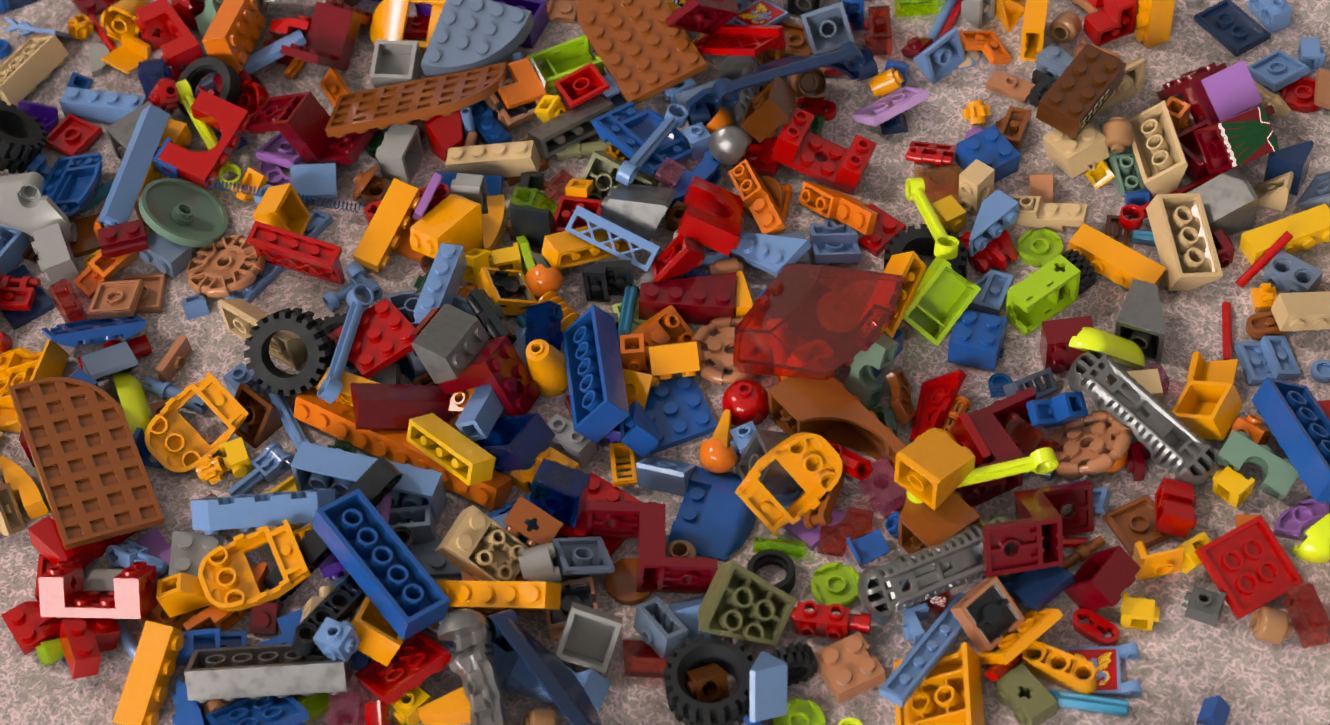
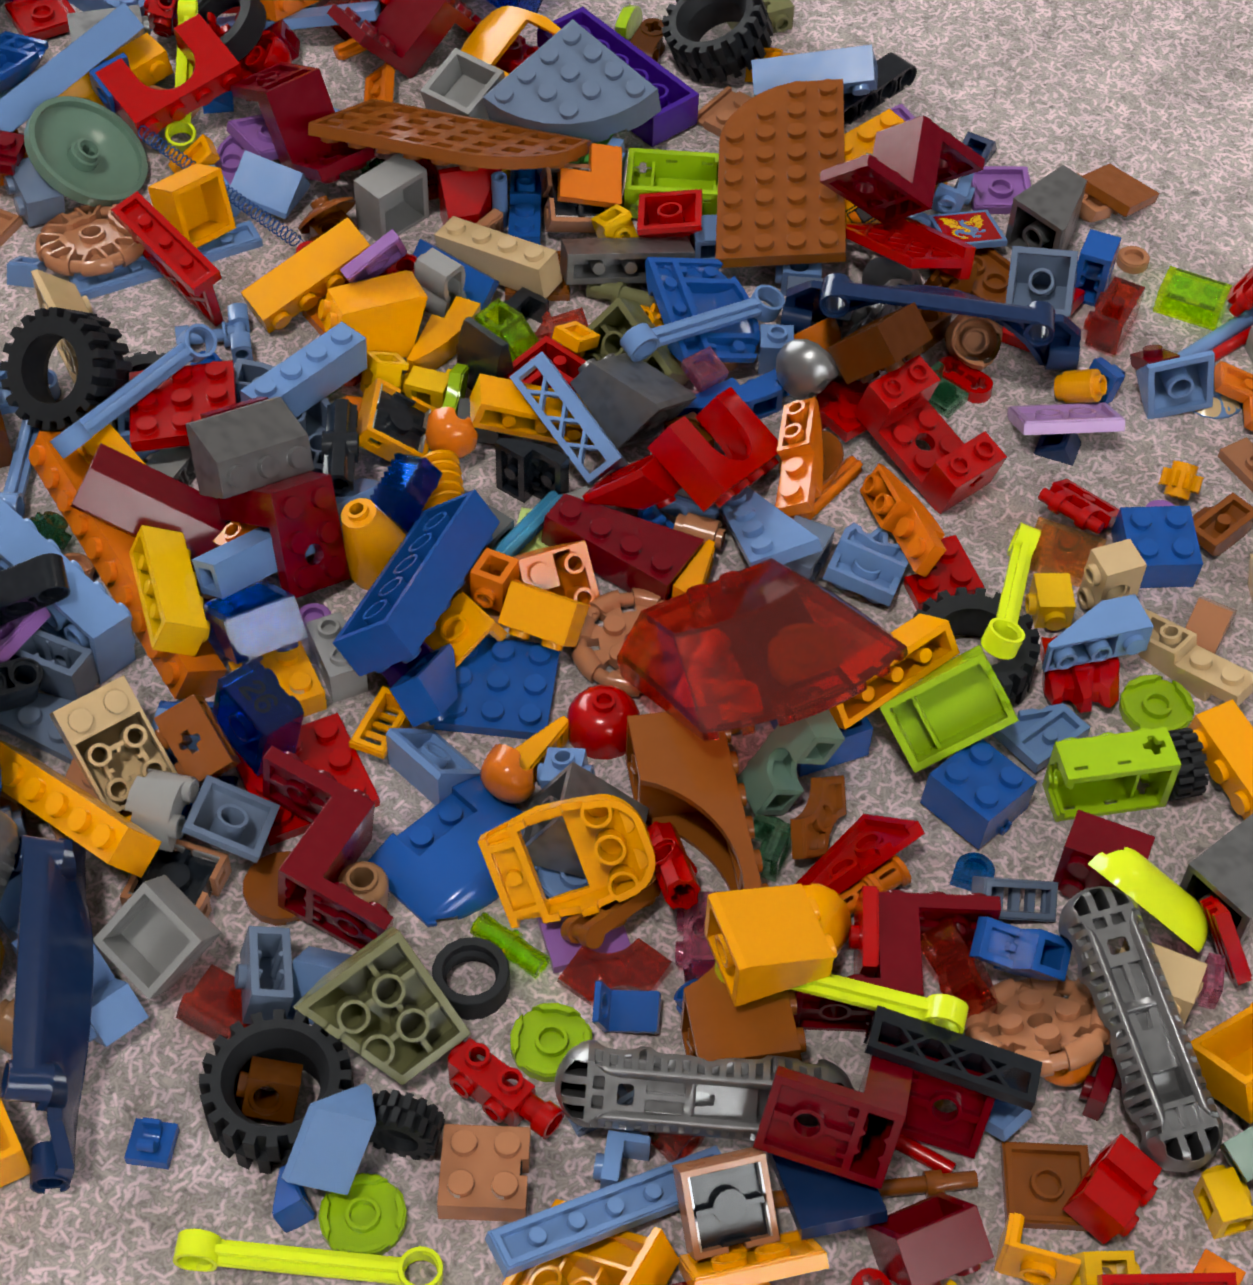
camera: 20 degrees right, 0 degrees up
(1059, 480) = (1006, 1073): none -> black fence
(1155, 352) = (1226, 939): none -> red tile

